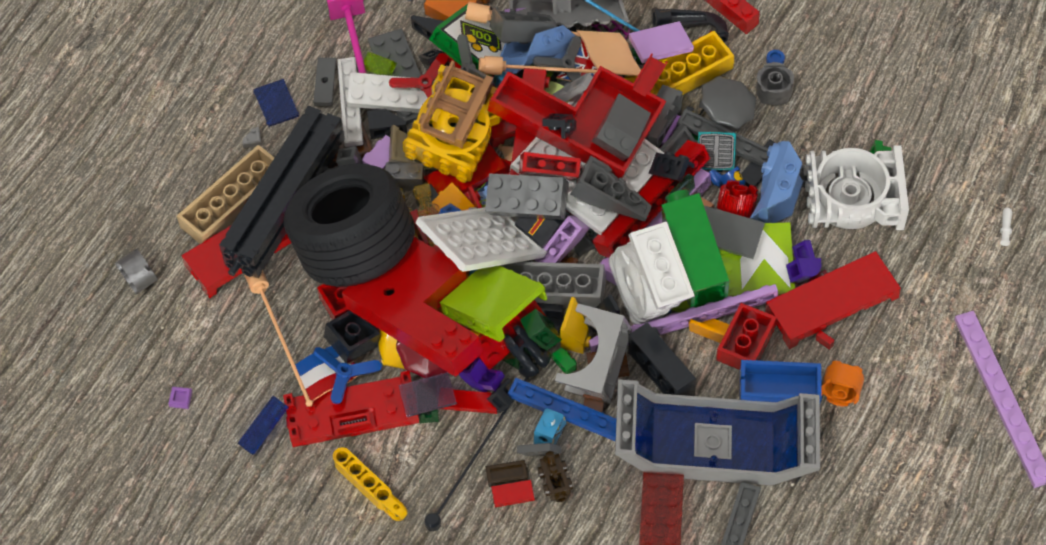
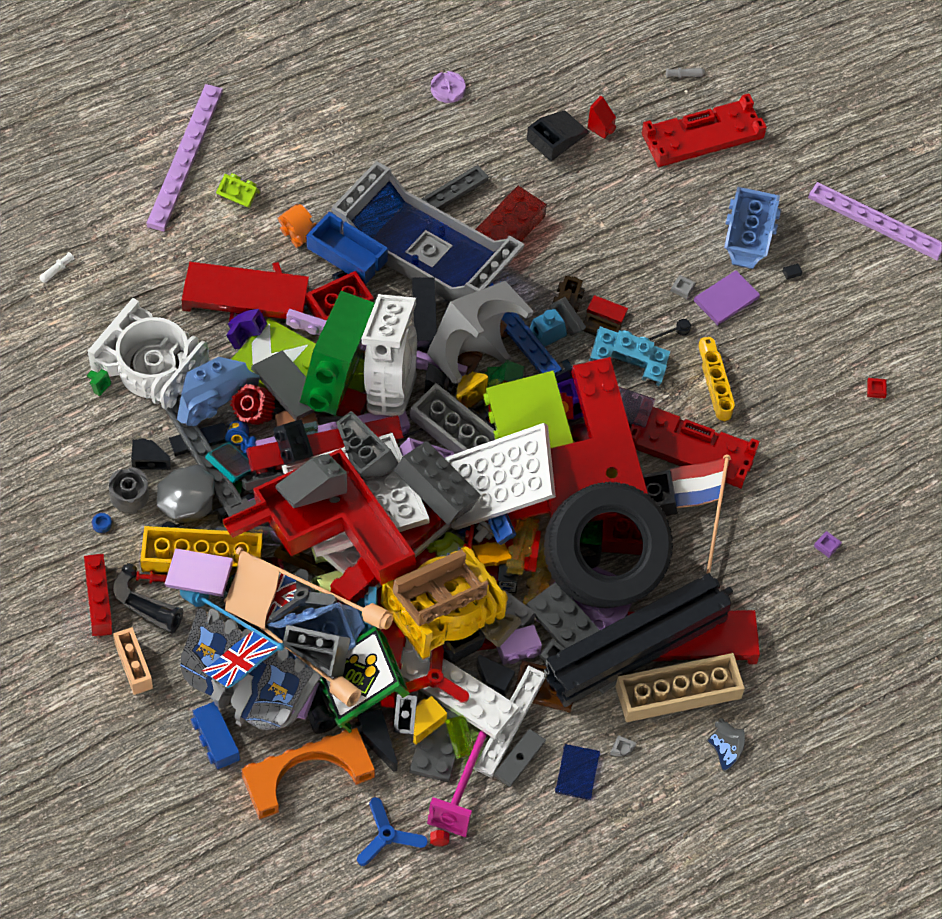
camera: 155 degrees left, 0 degrees up
(136, 271) = (807, 667): flat silver brick -> none
(171, 187) = (727, 743): none -> dark grey arm
(263, 425) = (774, 469): clear blue tile -> none
(345, 372) = (685, 466): blue piece -> none
(410, 57) = (428, 718): none -> yellow slope
(461, 456) = (633, 350): none -> medium azure bracket
(466, 58) = (396, 640): dark grey piece -> none
(549, 165) = (401, 487): red brick -> none
(557, 120) = (368, 505): black bracket -> none
(574, 88) = (327, 549): light grey tile -> none
(785, 122) = (149, 456): none -> black slope
(926, 393) = (236, 190): none -> lime bracket

